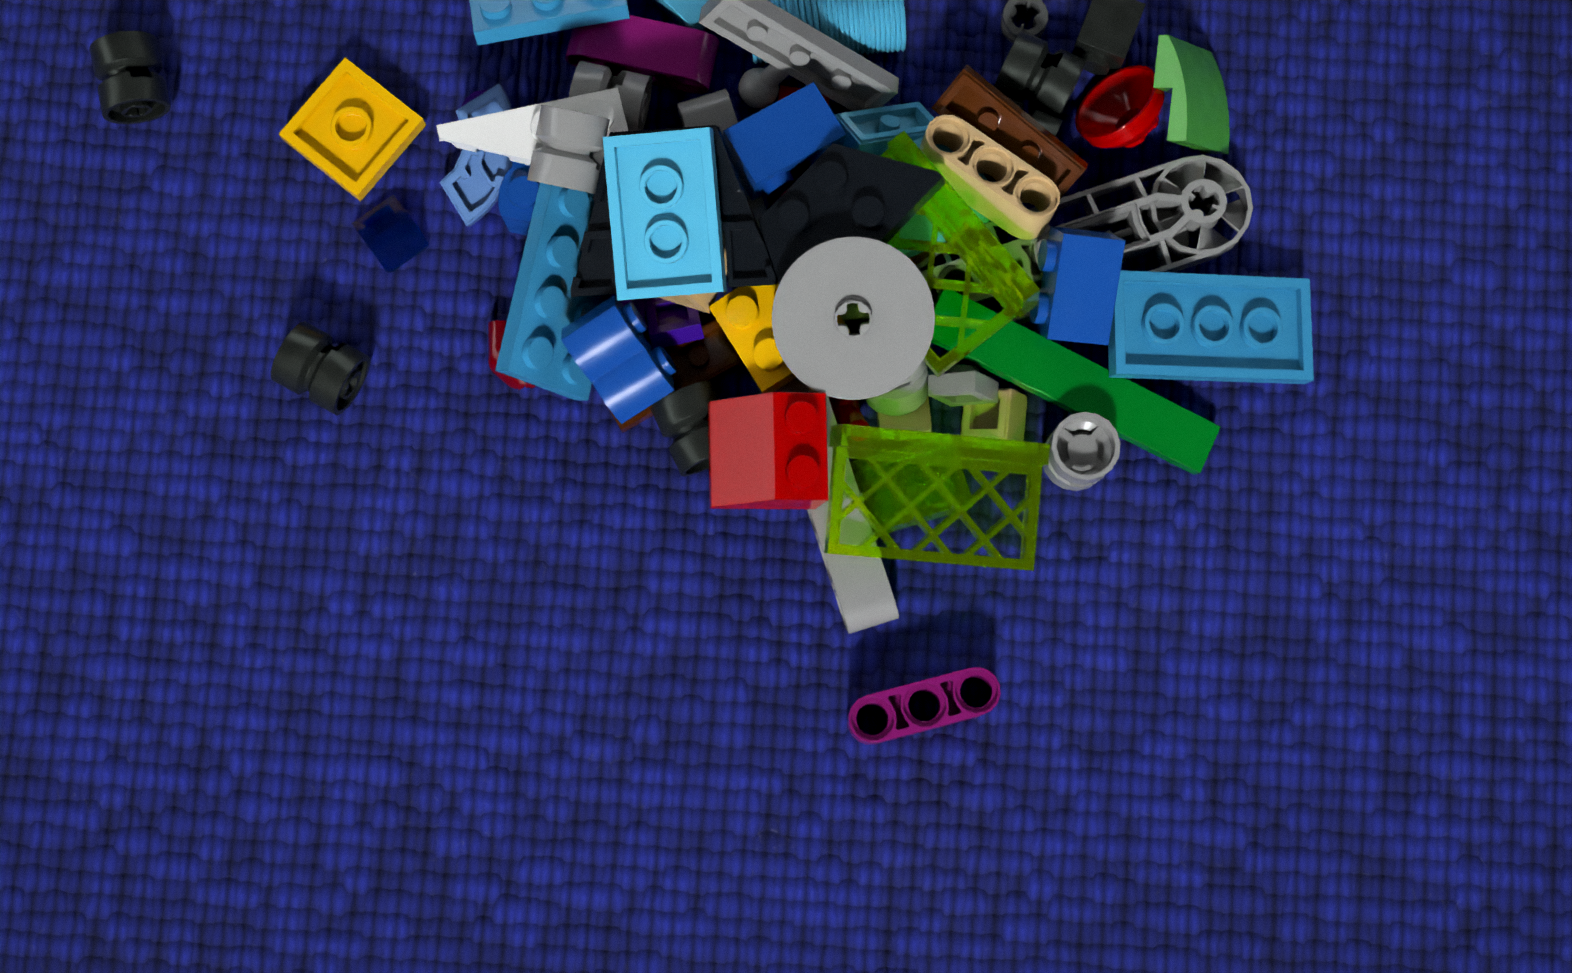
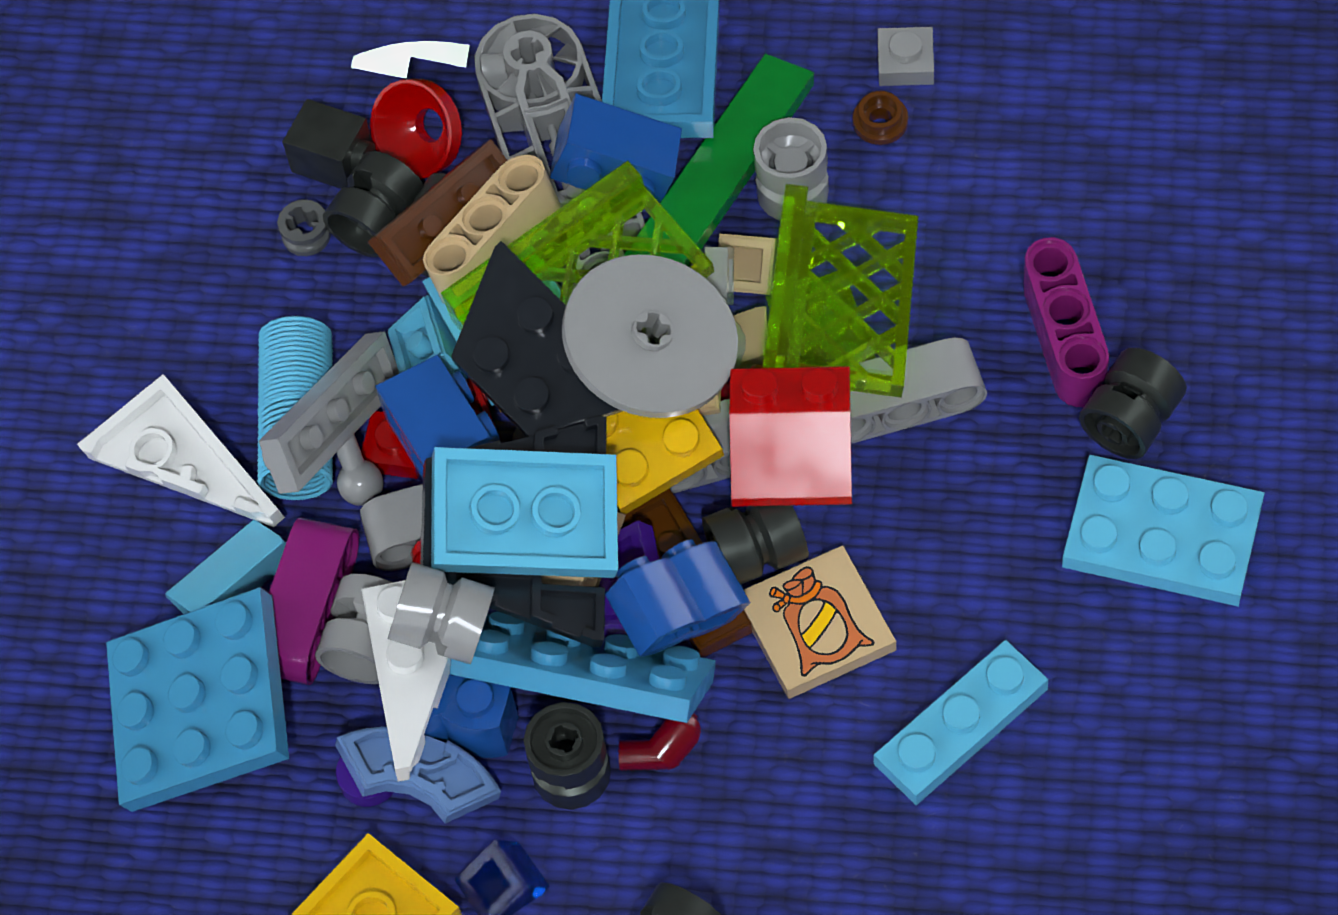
camera: 80 degrees left, 20 degrees down
(484, 275) = (567, 755): none -> pearl dark grey wheel
(530, 611) = (960, 722): none -> medium azure plate
(625, 485) = (817, 622): none -> tan tile
(715, 791) = (1163, 530): none -> medium azure plate
(848, 777) = (1133, 402): none -> pearl dark grey wheel
(1161, 525) = (880, 106): none -> reddish brown plate
(1225, 560) = (905, 56): none -> light grey plate

